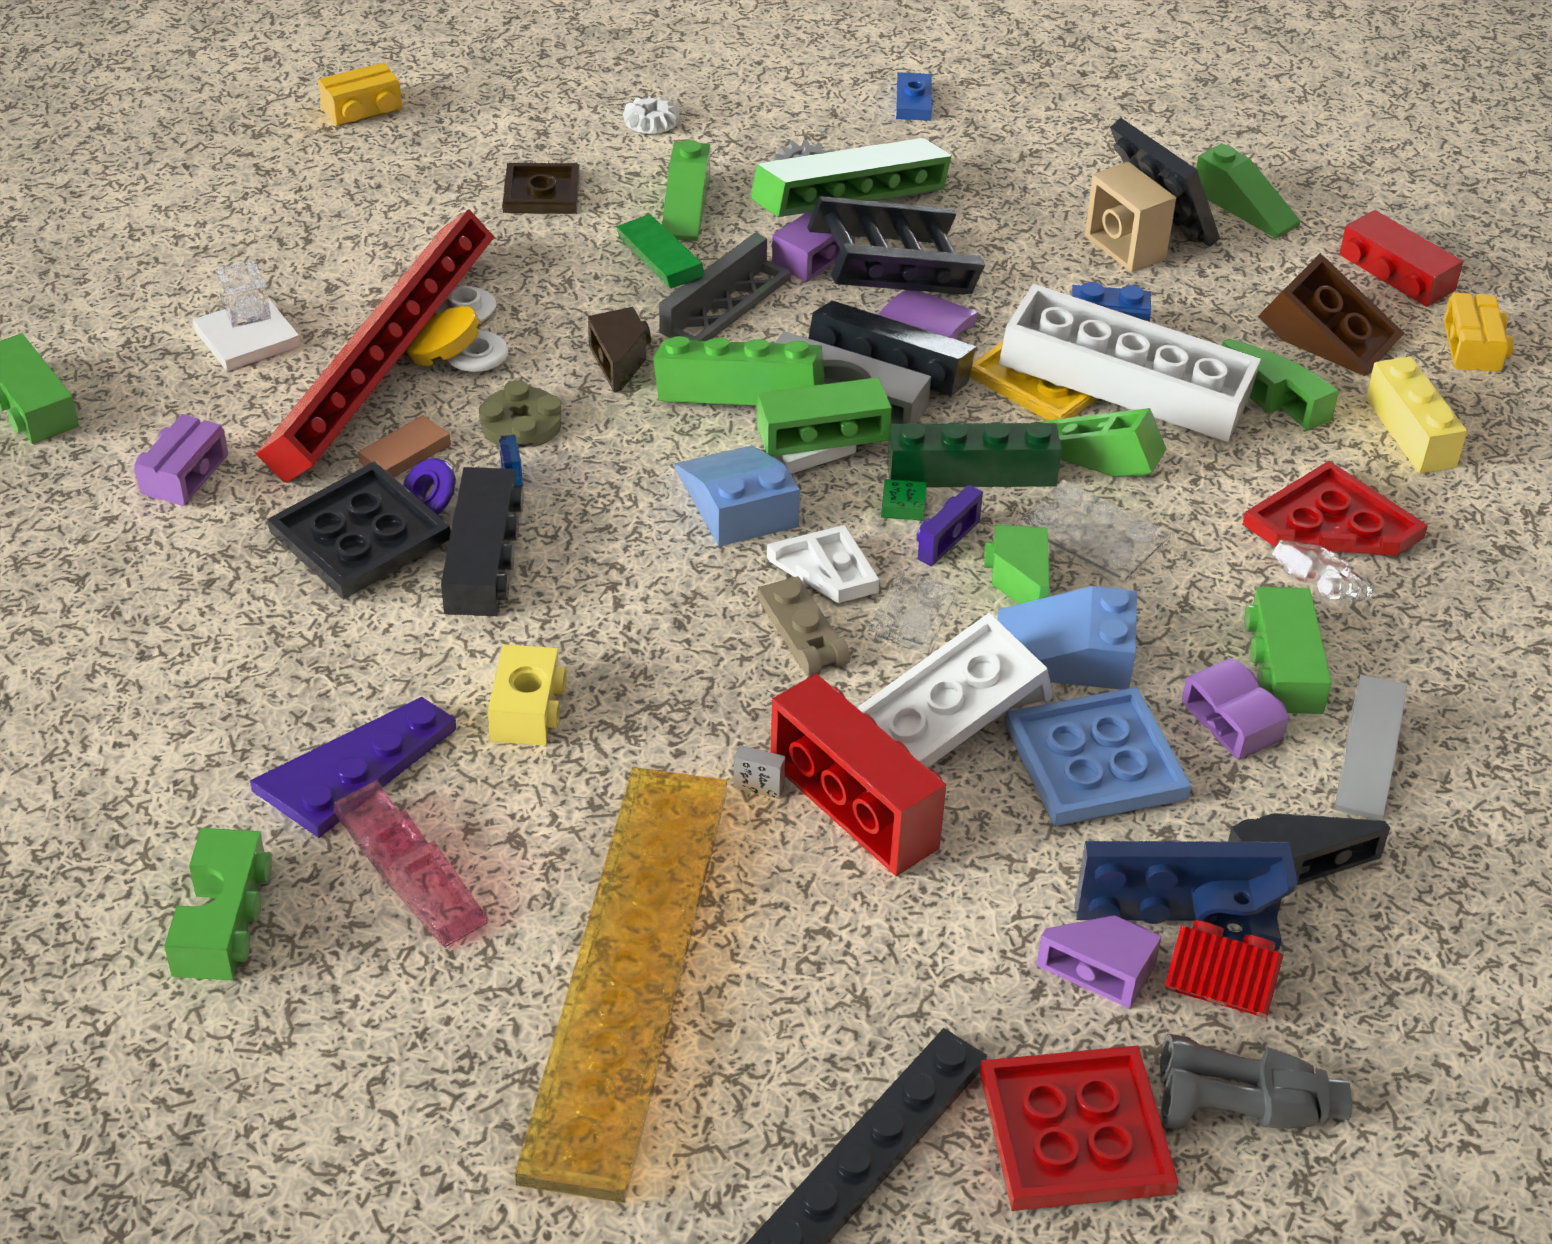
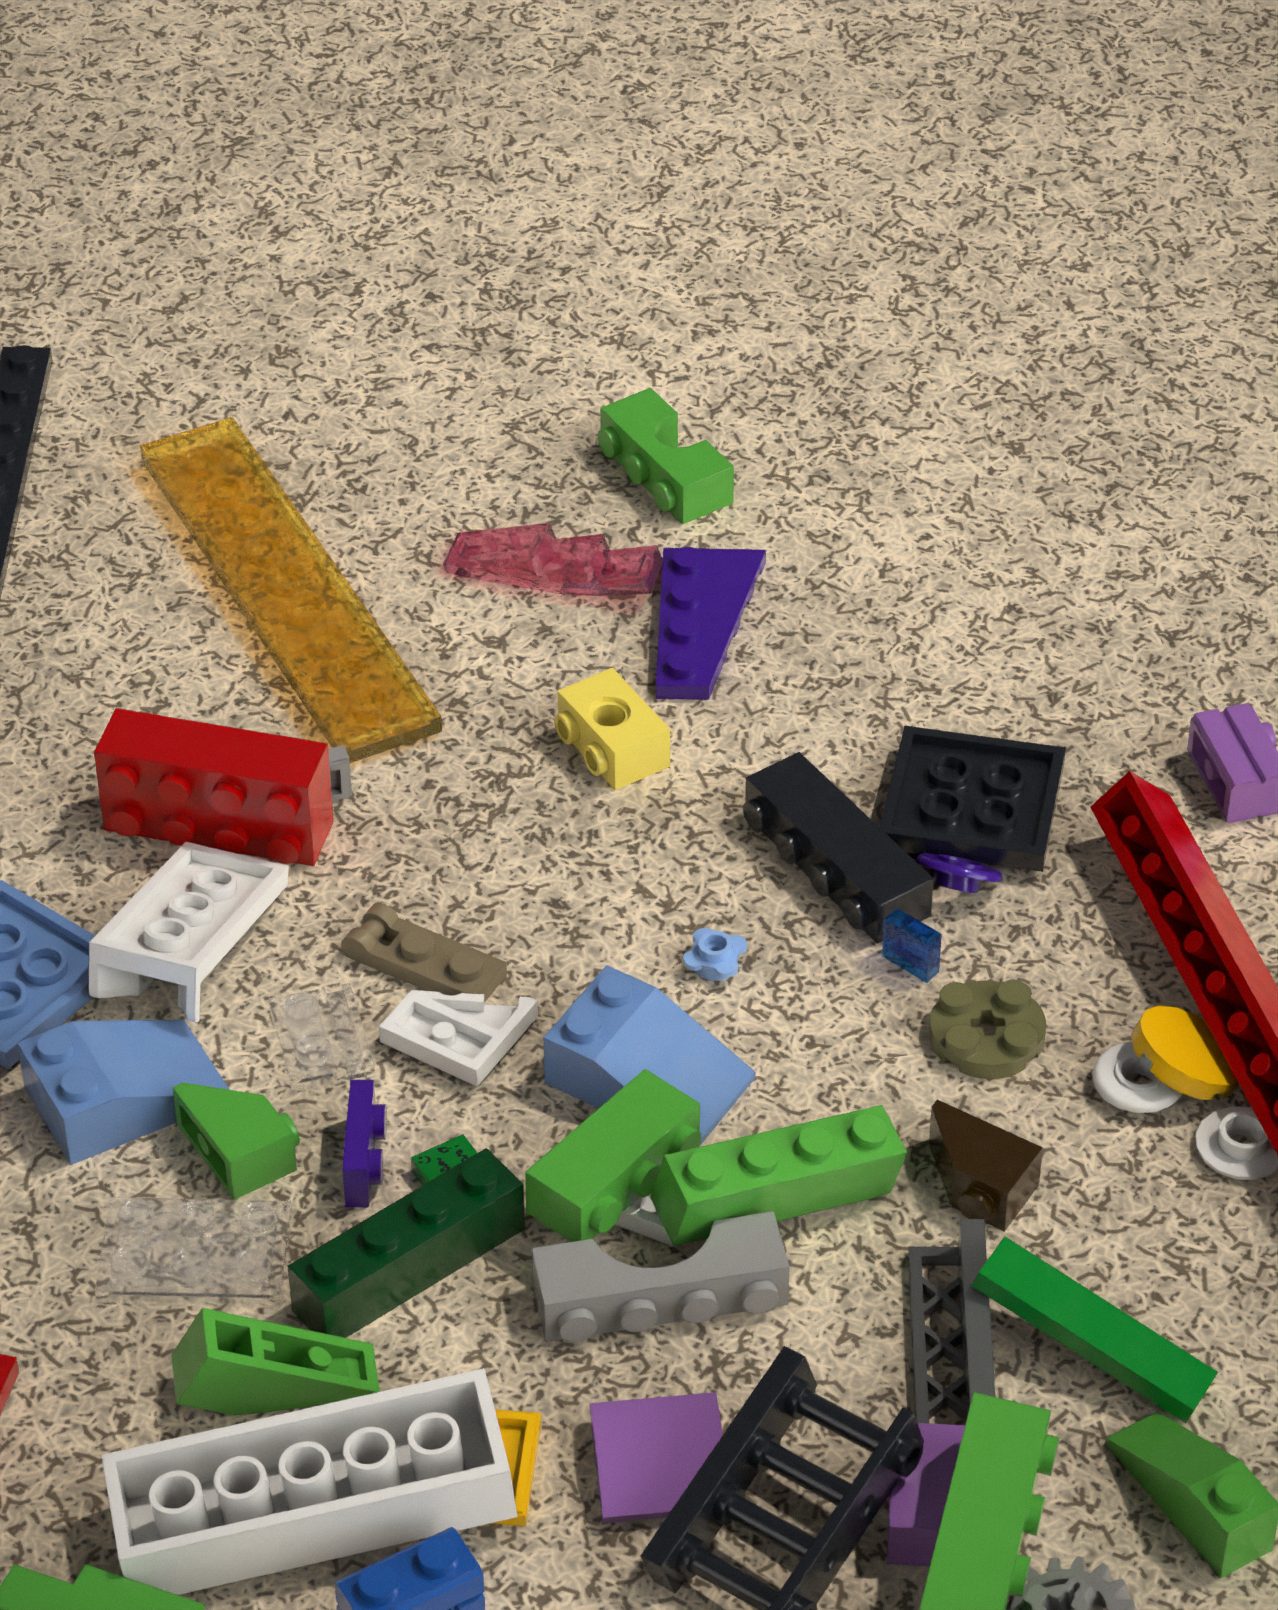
camera: 145 degrees right, 0 degrees up
(406, 446) = (1058, 922): nougat tile -> none
(624, 530) = (714, 954): none -> light blue plate
(895, 343) = (647, 1350): black brick -> none

